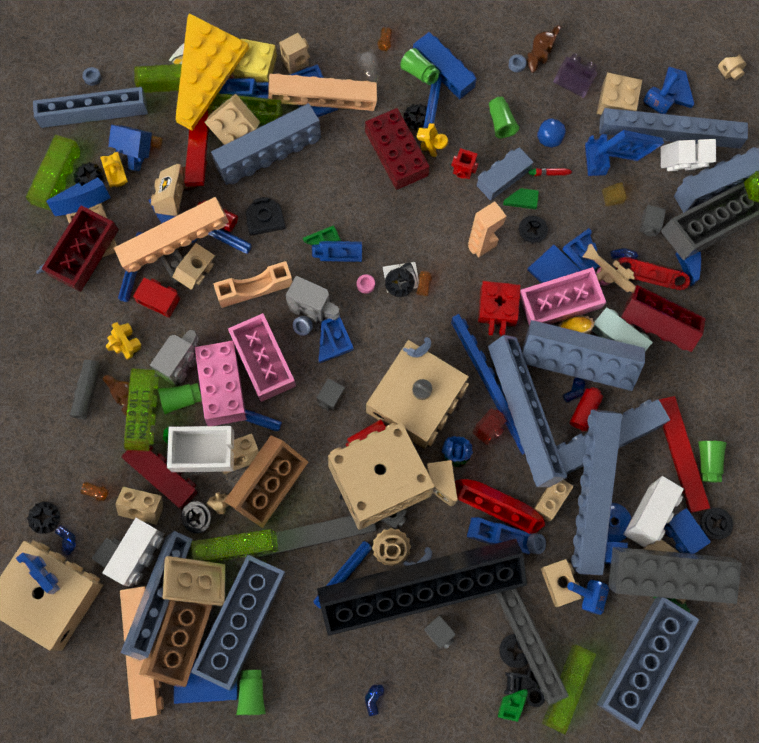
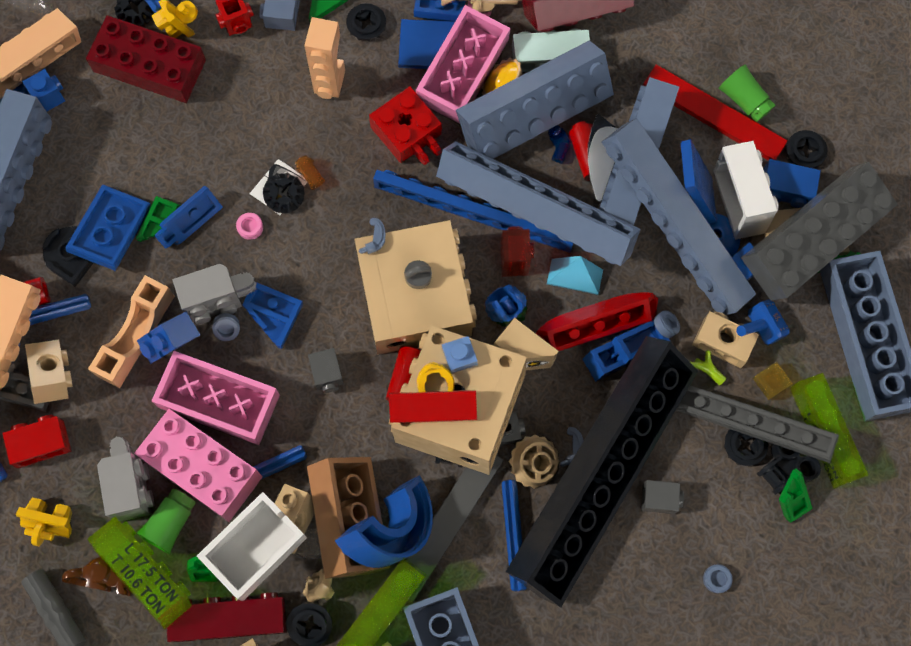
camera: 45 degrees left, 0 degrees up
(266, 303) = (168, 337): none -> blue piece
(286, 519) = (407, 532): none -> blue brick
(294, 220) = (108, 227): none -> blue tile
(330, 120) = (45, 89): none -> blue brick
(359, 465) = (433, 406): none -> red tile
(371, 698) = (659, 625): clear blue arm -> none
(382, 454) = (434, 368): none -> yellow piece
(400, 451) = (459, 354): none -> medium blue plate
(427, 706) = (717, 578): none -> sand blue tile
(512, 469) = (575, 274): none -> medium azure slope
(536, 589) = (709, 368): none -> lime bar
(553, 499) = (642, 268): tan brick -> none
(565, 631) = (772, 380): none -> clear yellow plate
(580, 423) = (598, 160): none -> white sticker
(629, 482) = (698, 181): none -> blue tile

